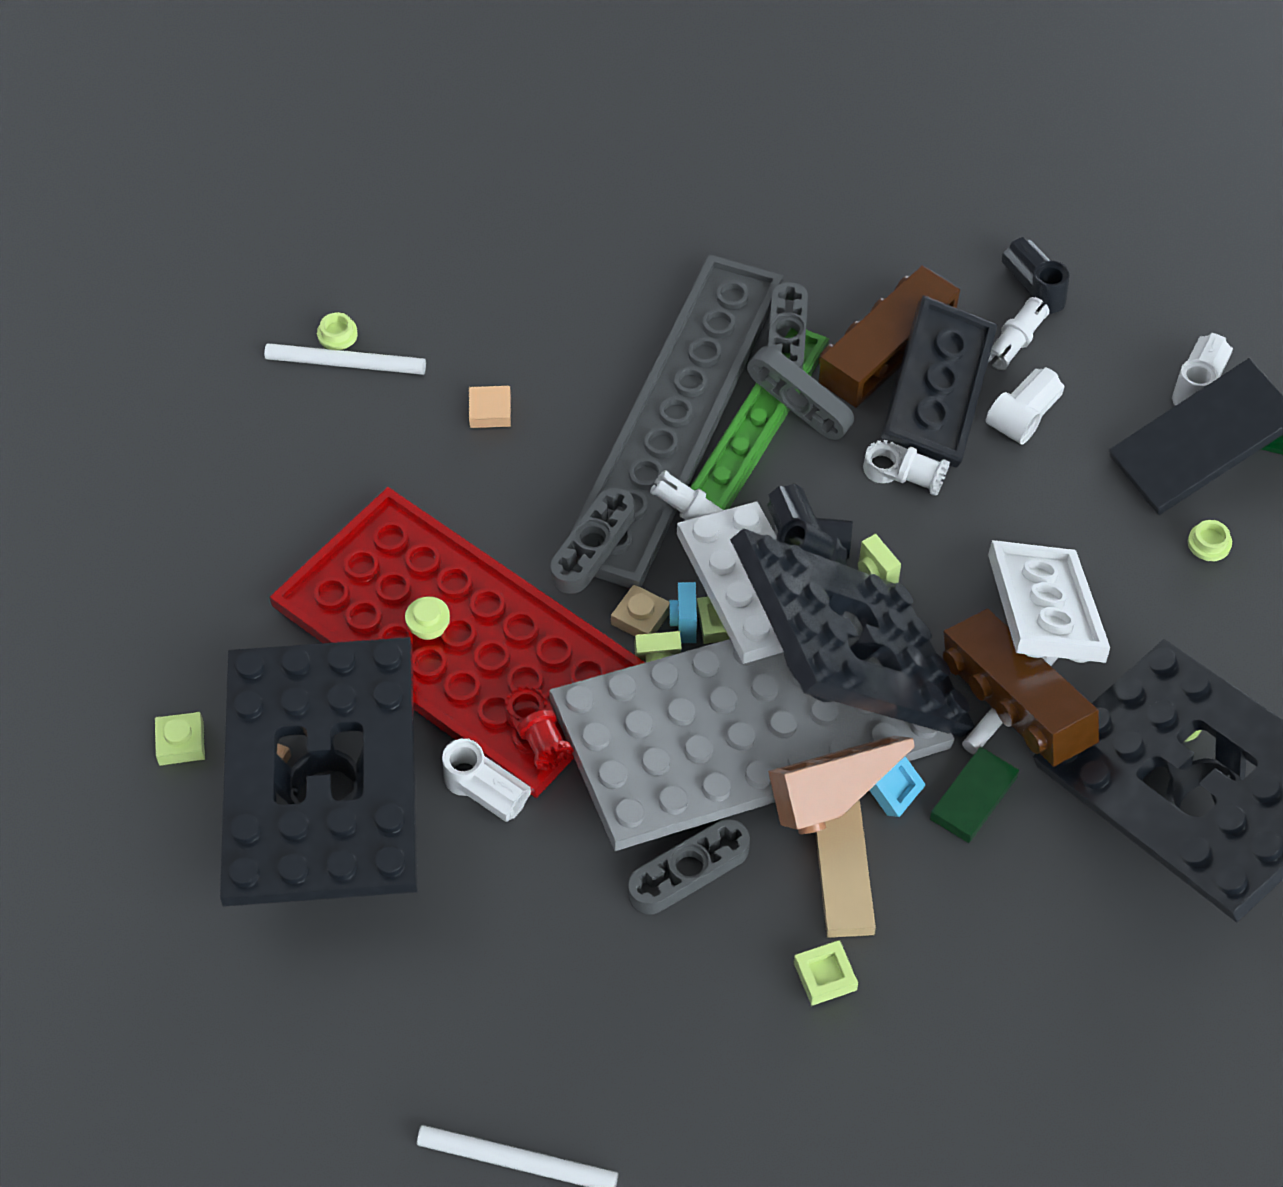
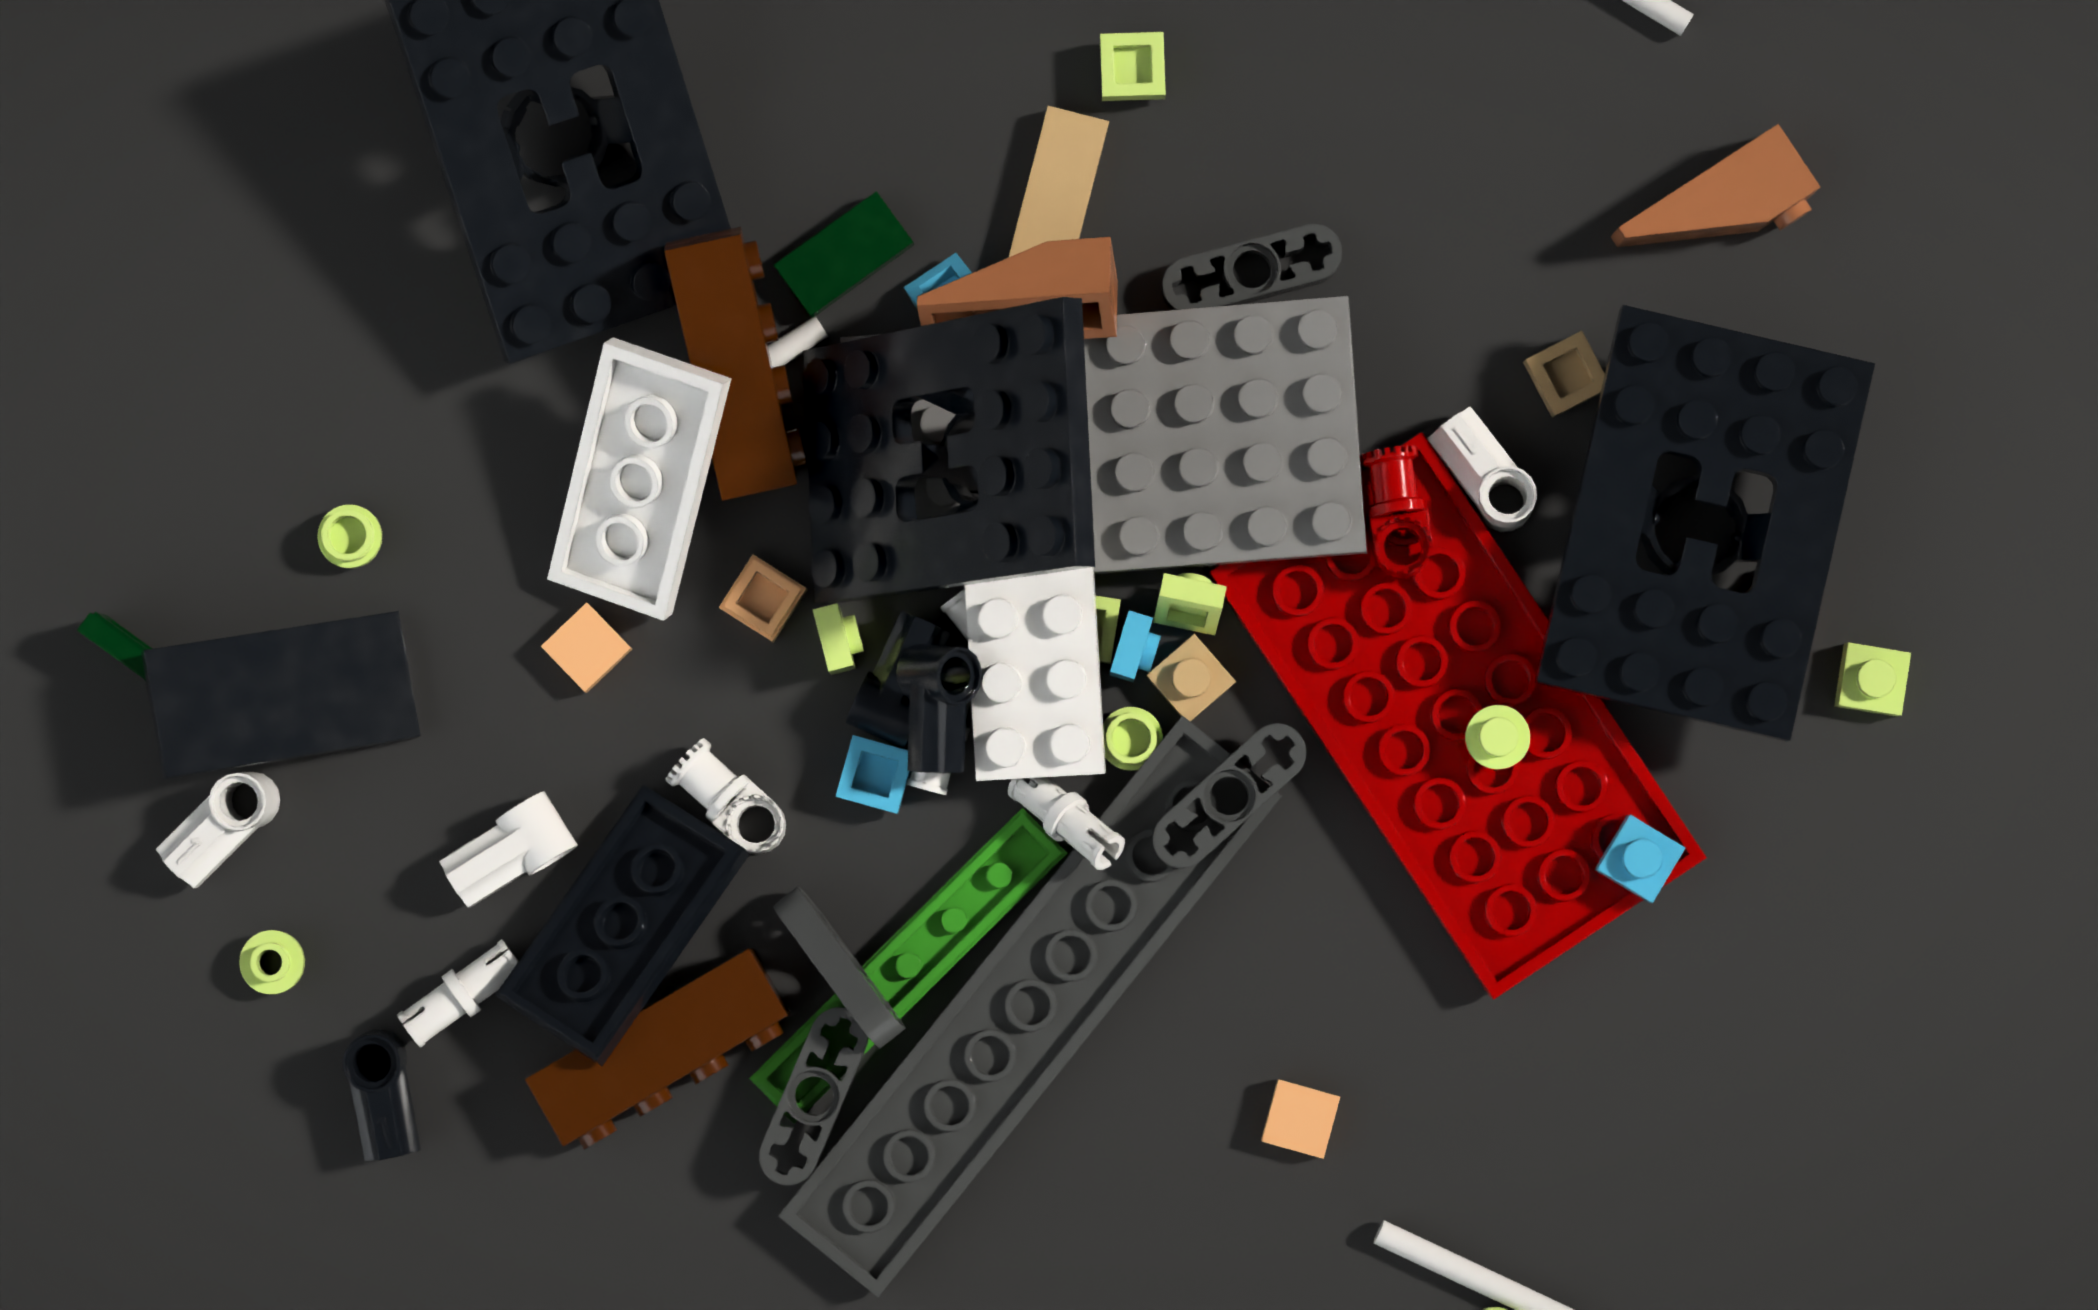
camera: 165 degrees left, 30 degrees up
(313, 578) = (1639, 858): none -> medium azure plate
(353, 1012) = (1735, 196): none -> nougat slope
(444, 860) = (1566, 374): none -> tan plate
(668, 568) = (1130, 737): none -> yellowish green plate
(825, 498) = (874, 774): none -> medium azure plate
(935, 582) = (763, 598): none -> light nougat tile
(1031, 524) = (586, 647): none -> light nougat tile
(1133, 322) = (292, 962): none -> yellowish green plate

